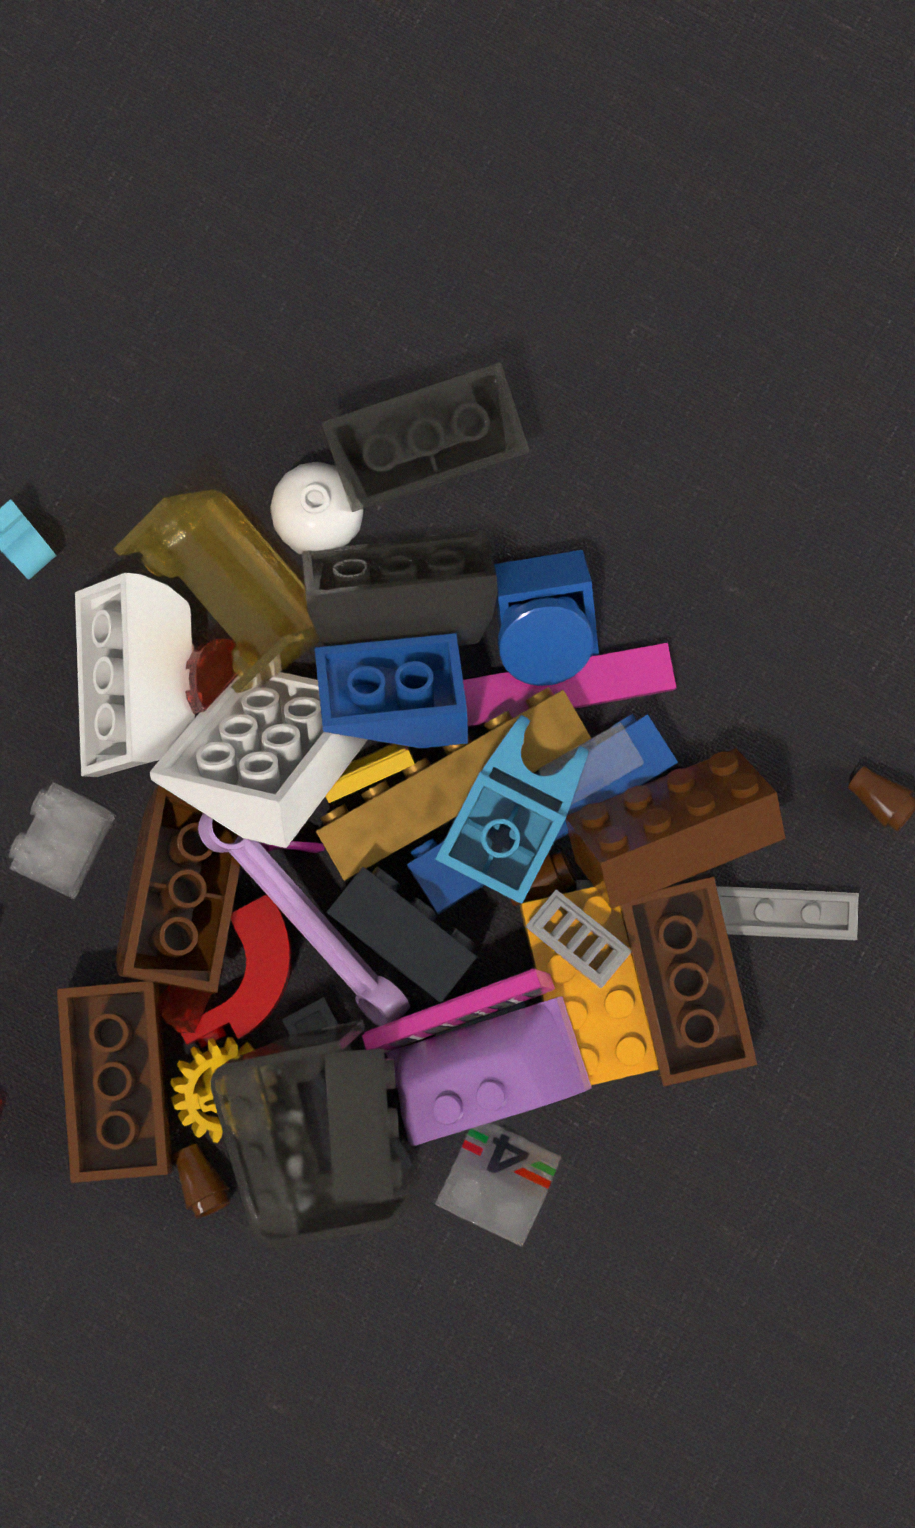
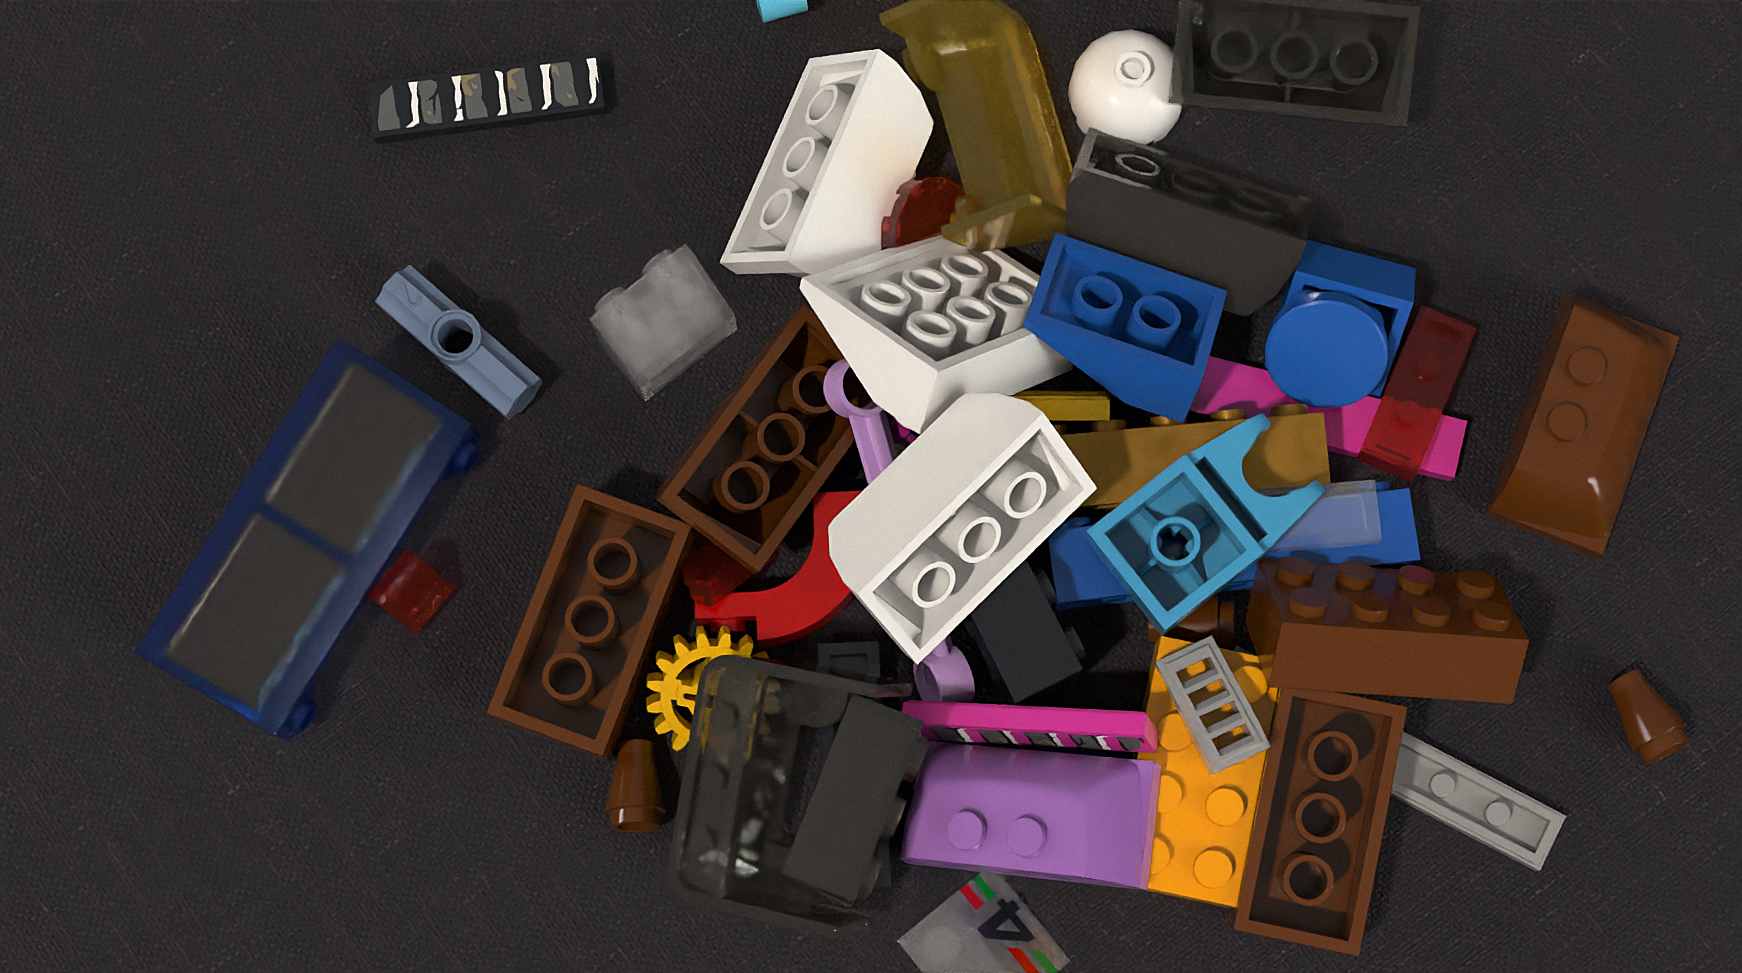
camera: 30 degrees right, 5 degrees down
(337, 897) = (955, 516): none -> white windscreen
(623, 640) = (1416, 394): none -> clear red tile
(749, 607) = (1582, 426): none -> reddish brown windscreen

